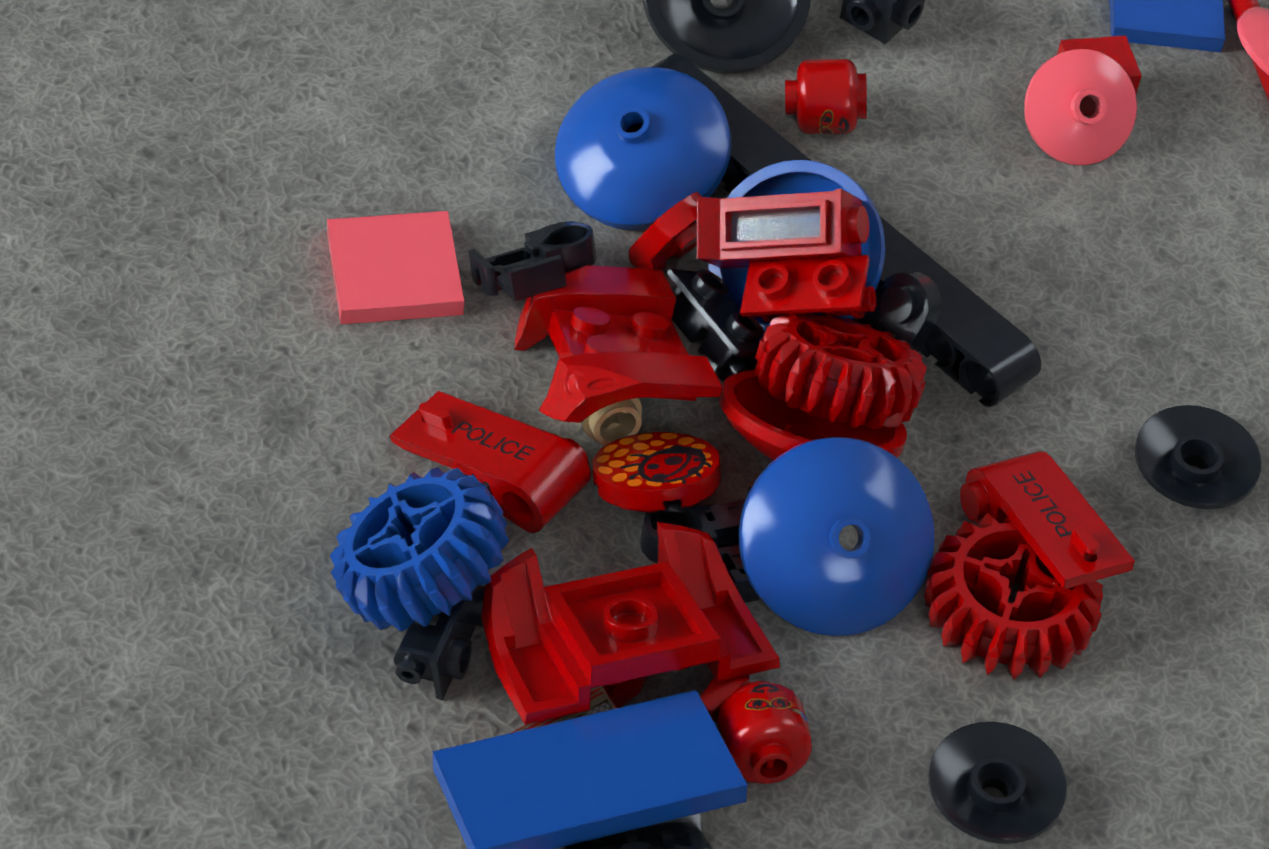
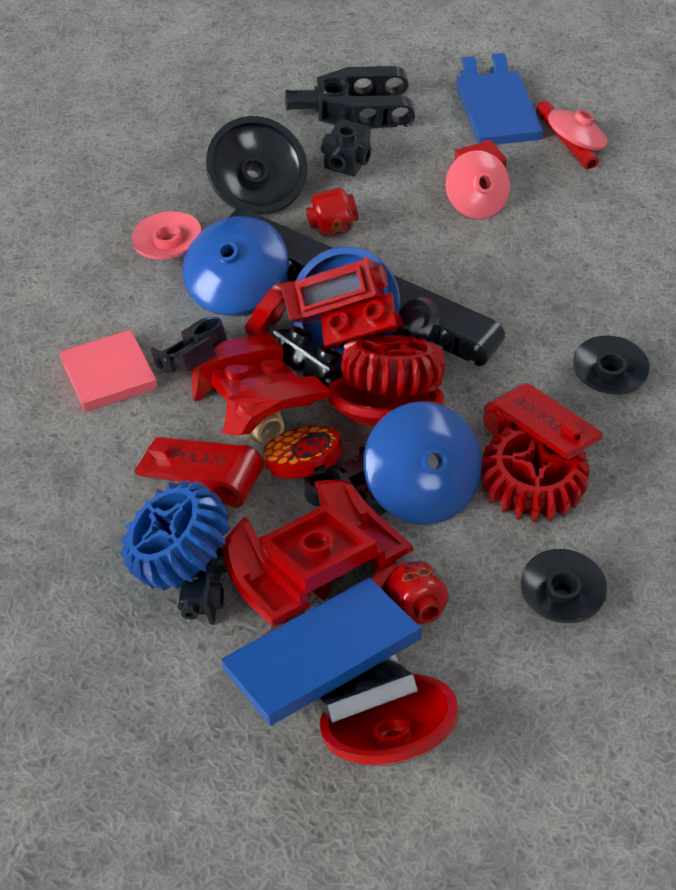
camera: 10 degrees left, 0 degrees up
(546, 70) = (165, 235): none -> coral dish

